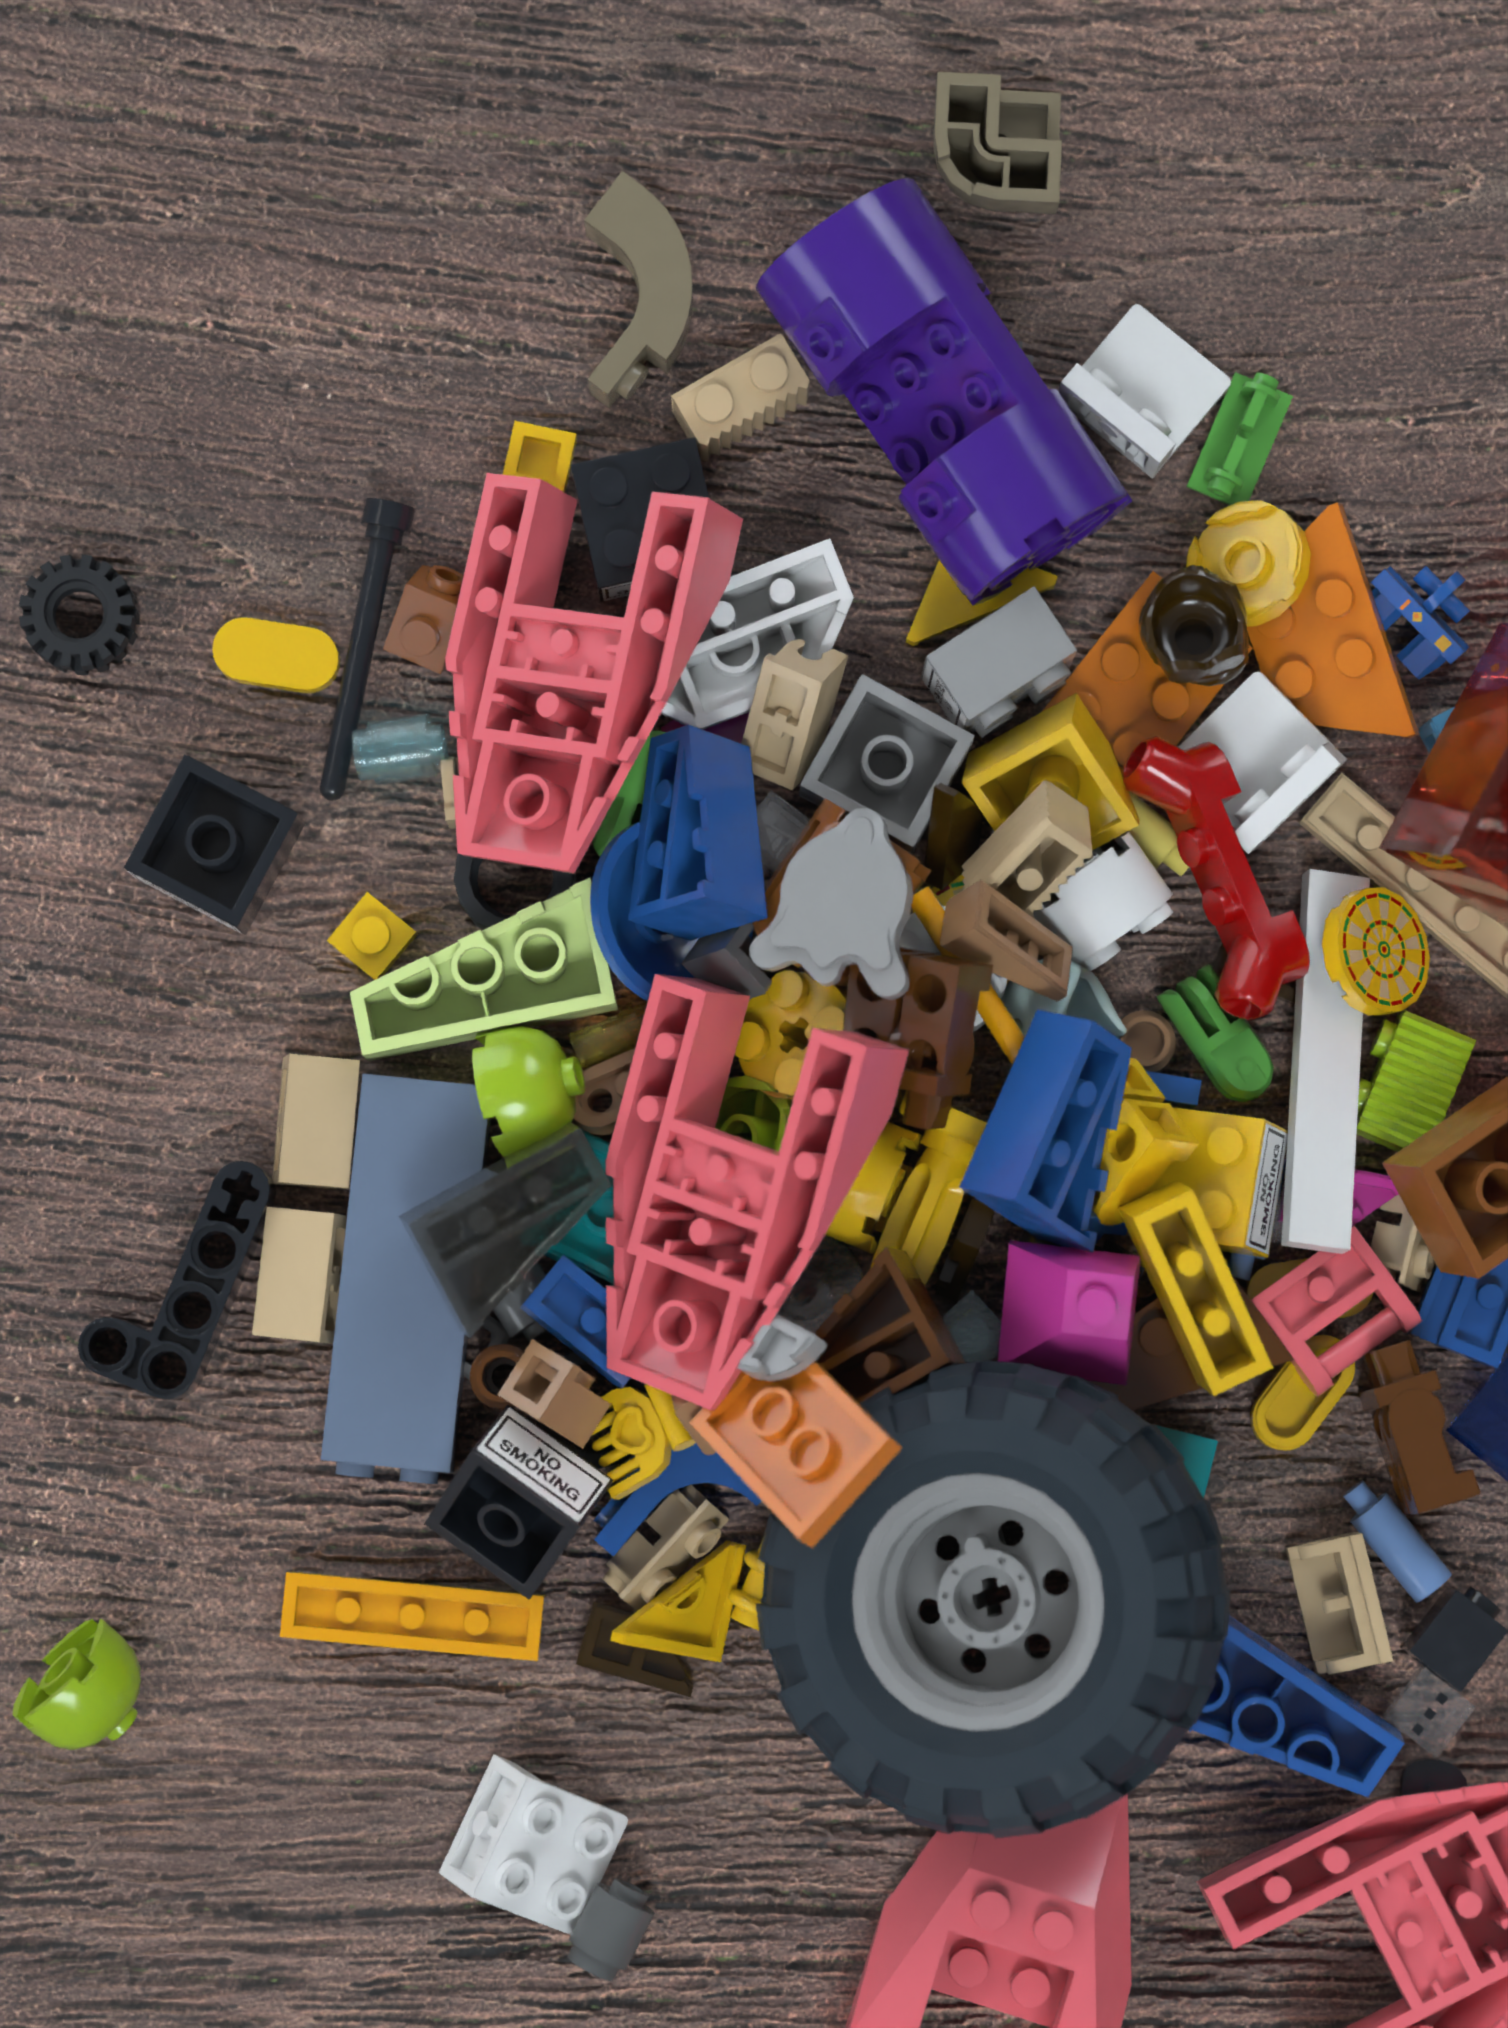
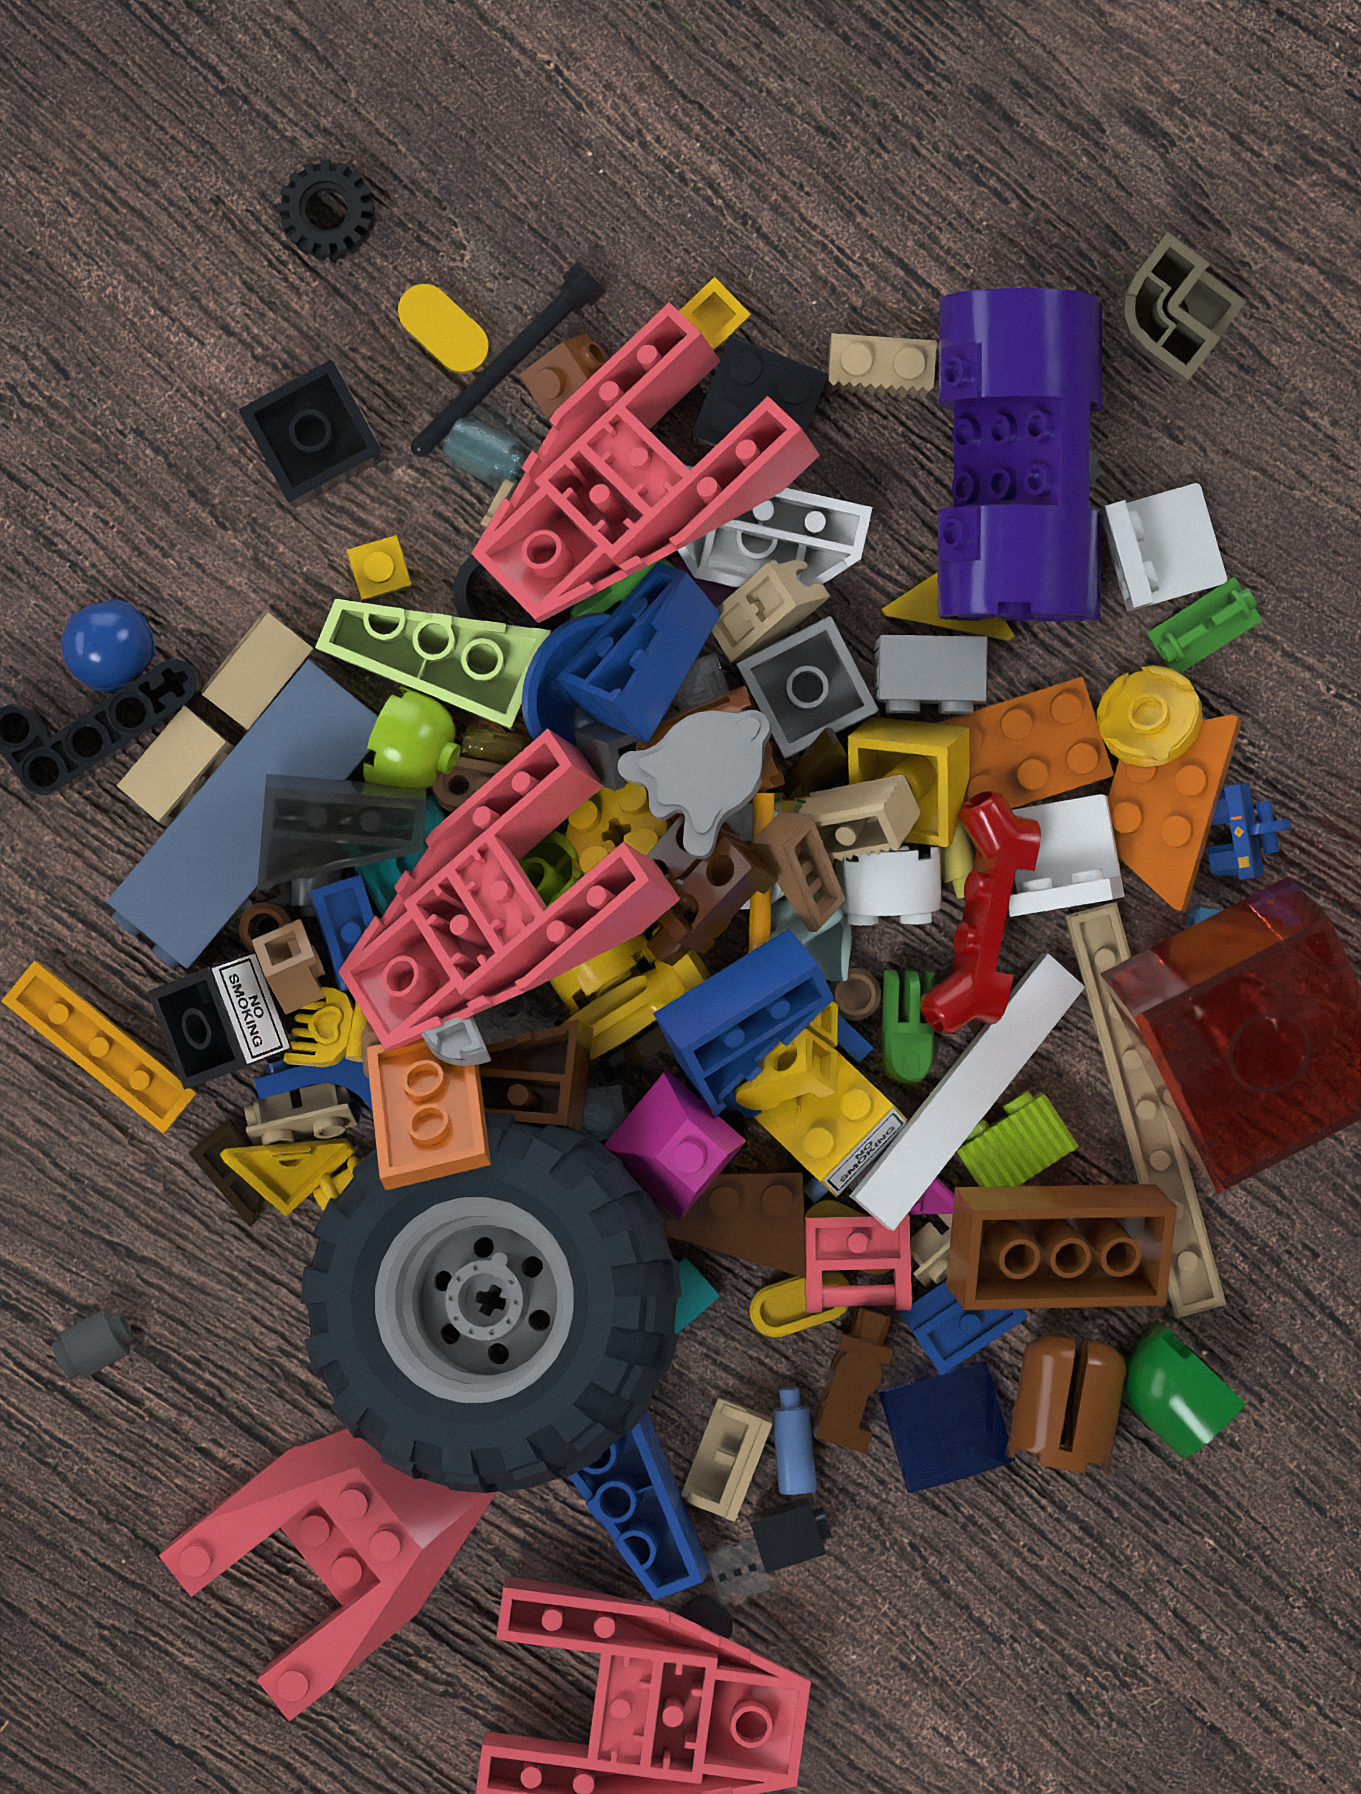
camera: 35 degrees right, 5 degrees up
(147, 1200) = (107, 645): none -> blue helmet
(532, 1846) = (77, 1254): white bracket -> none
(650, 246) = (890, 216): dark tan arch -> none
(1195, 1287) = (767, 1187): yellow brick -> none
(1196, 627) = (1080, 738): dark brown hair -> none
(1376, 951) = (1053, 1040): yellow tile -> none

